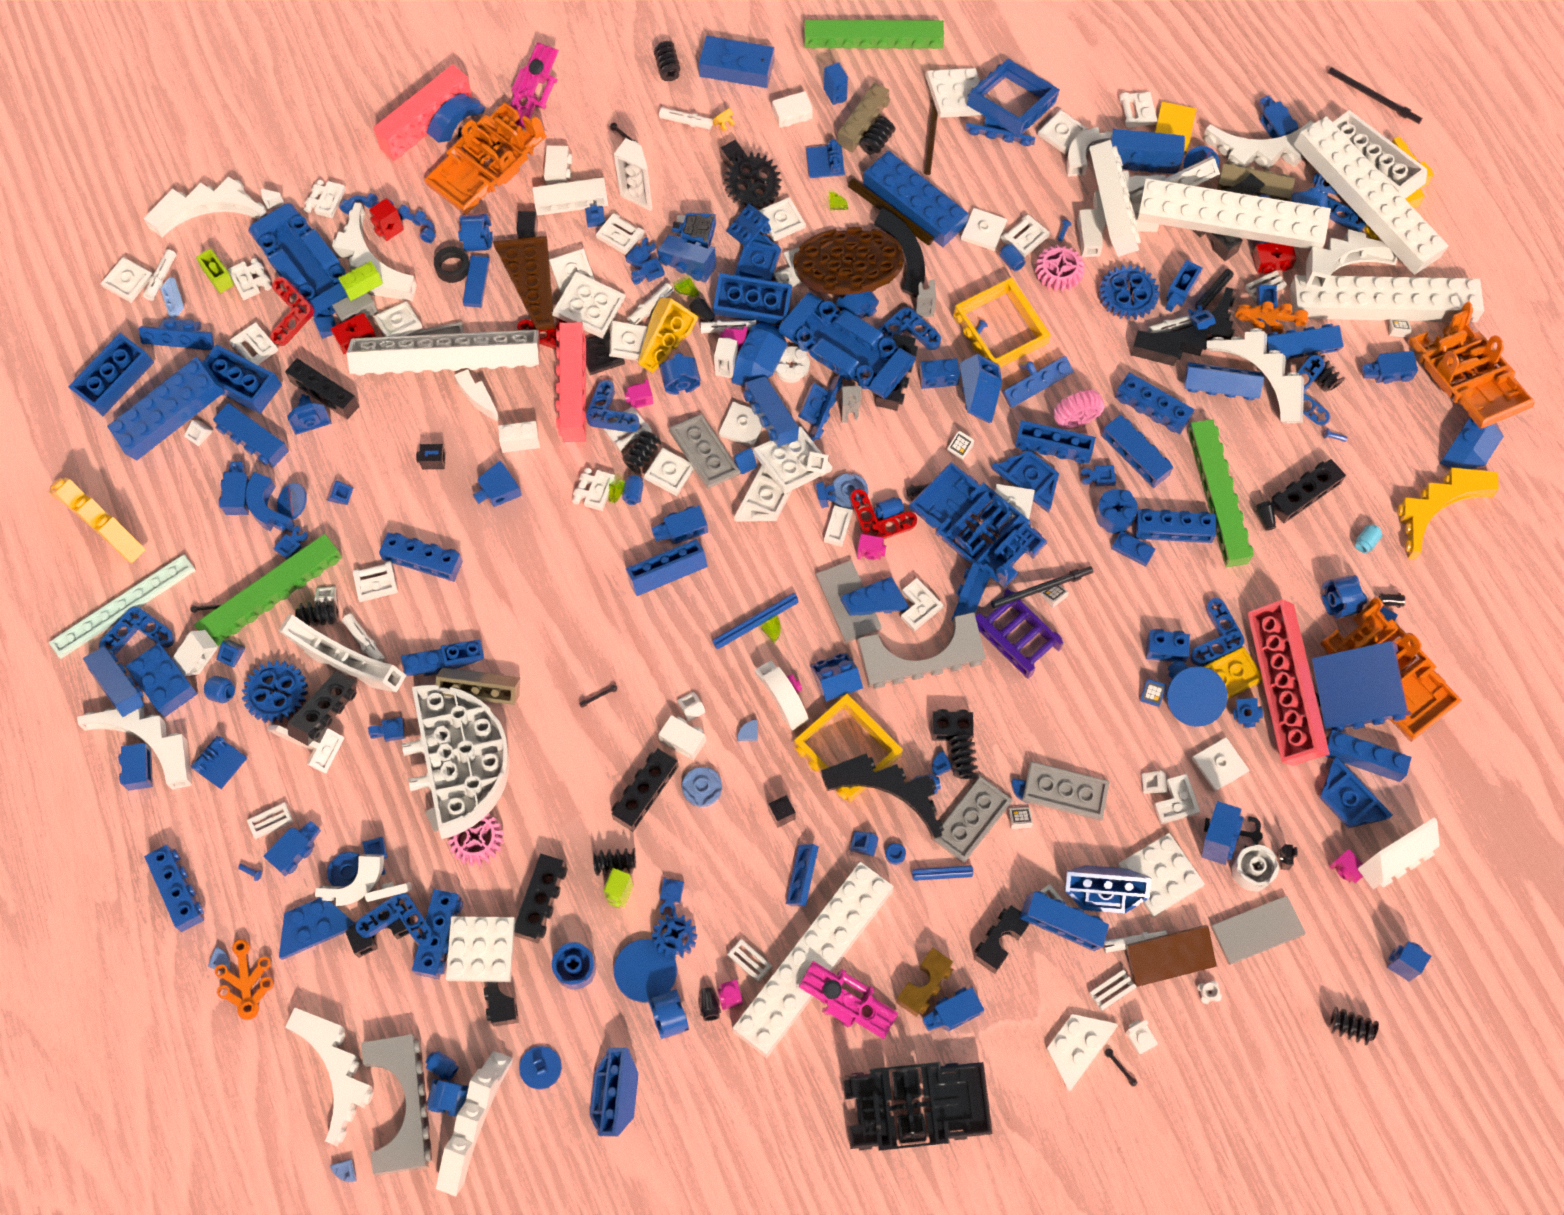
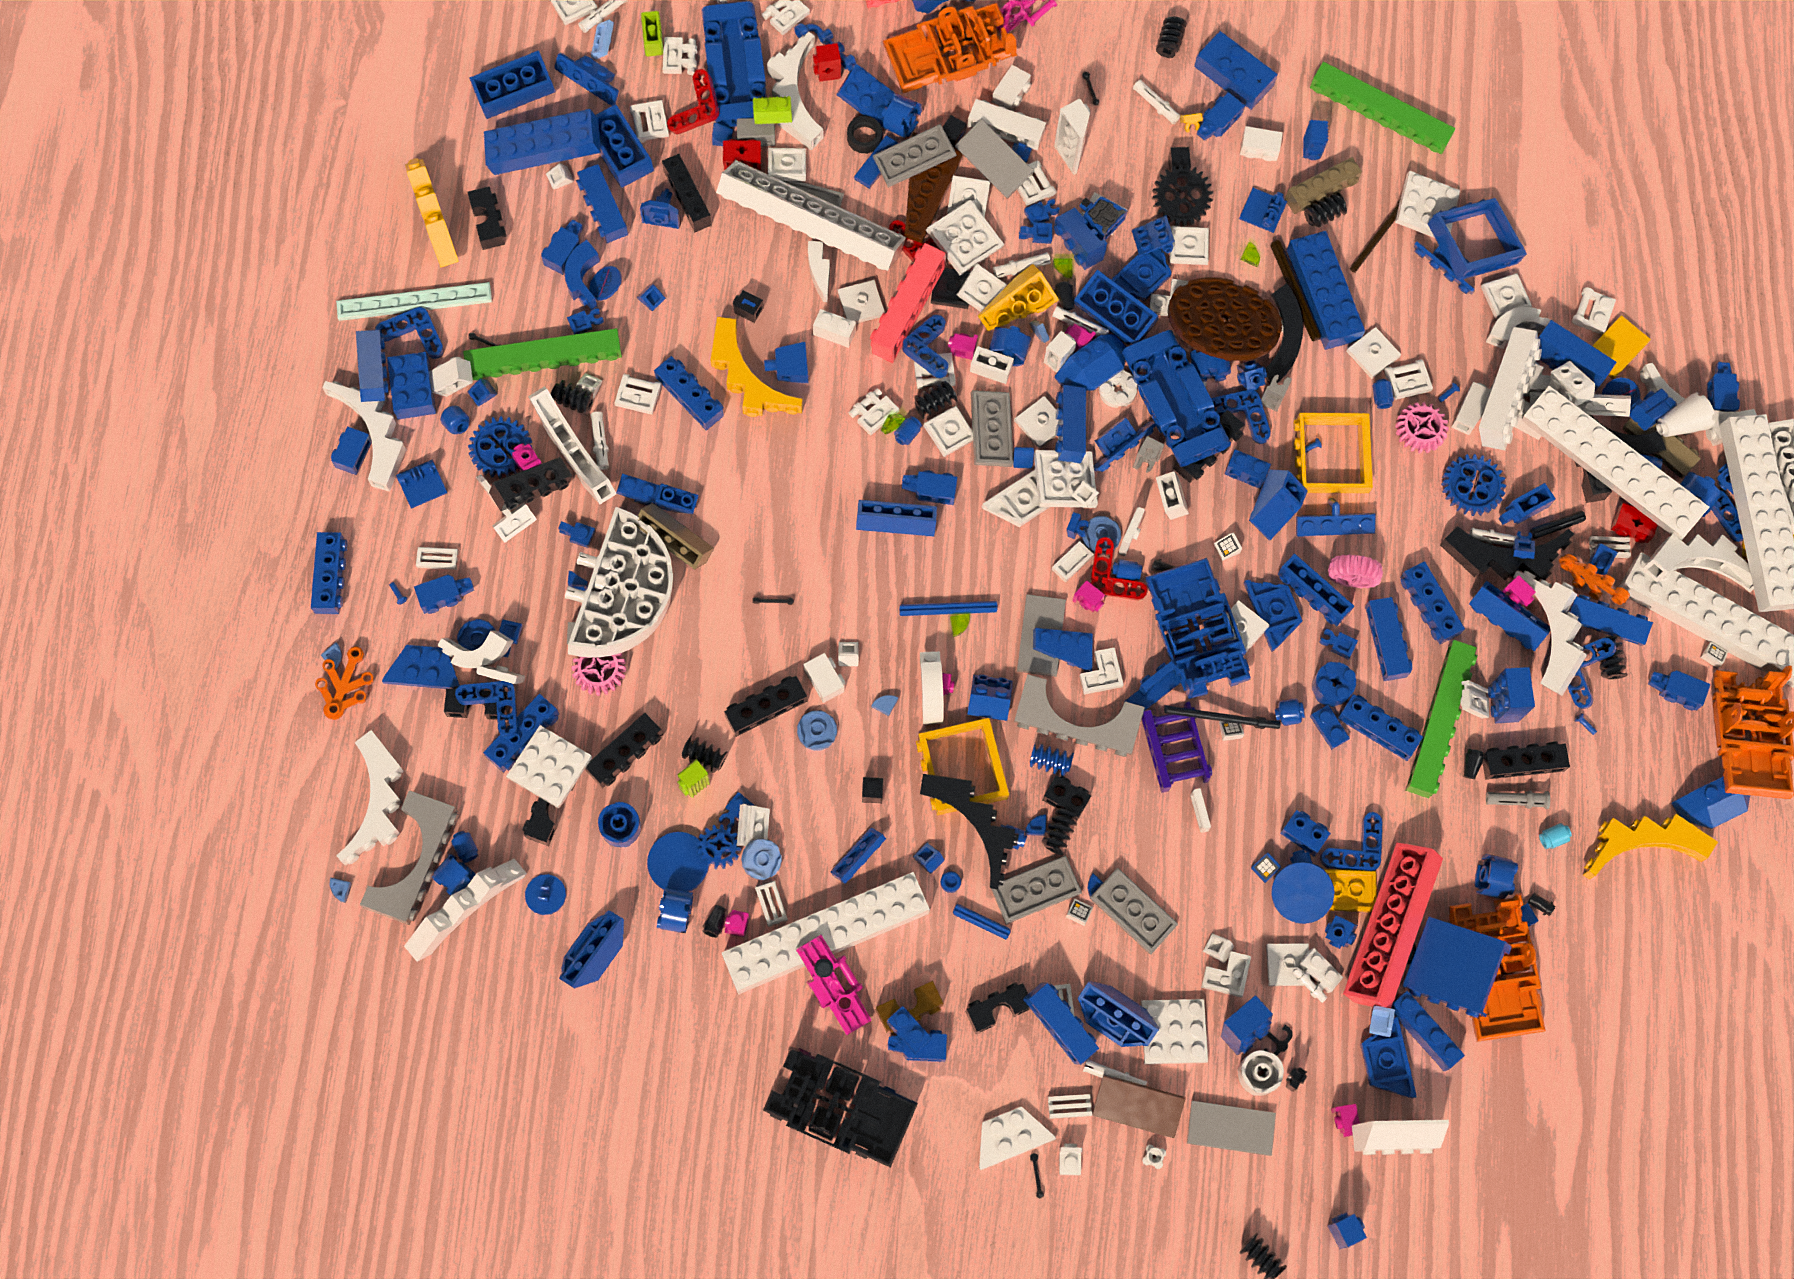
camera: 25 degrees right, 5 degrees up
(141, 489) = (490, 231): none -> black arch
(303, 693) = (524, 464): none -> dark pink brick
(412, 771) = (577, 582): none -> blue slope
(434, 229) = (865, 93): none -> blue plate
(460, 520) = (740, 379): none -> yellow arch
(506, 259) = (914, 155): none -> light grey tile
(529, 403) = (861, 302): none -> white plate
(576, 228) = (994, 158): none -> light grey tile
(674, 398) = (991, 365): none -> white brick
(695, 901) = (752, 824): none -> white plate
(697, 350) = (1039, 330): none -> medium blue tile
(719, 925) = (761, 859): none -> medium blue tile
(746, 104) = (1220, 117): none -> blue hinge
(875, 473) = (1132, 531): none -> white plate
(890, 426) = (1172, 495): none -> white brick
(896, 296) = (1251, 375): none -> blue brick
(920, 700) = (1049, 759): none -> blue piece
(939, 1001) = (908, 1030): none -> blue brick
(1070, 675) = (1200, 810): none -> white tile
(1094, 553) = (1290, 712): none -> blue head
(1160, 168) = (1572, 383): none -> white brick
(1220, 355) = (1520, 591): none -> dark pink brick
(1234, 158) = (1652, 408): none -> blue brick
(1236, 462) = (1475, 699): none -> white plate
(1251, 754) = (1321, 971): none -> white plate
(1266, 441) = (1511, 695): none -> blue brick
(1267, 149) = (1687, 417): none -> white cone
(1327, 766) = (1382, 1021): none -> light blue panel
(1328, 520) = (1525, 799): none -> light grey pin

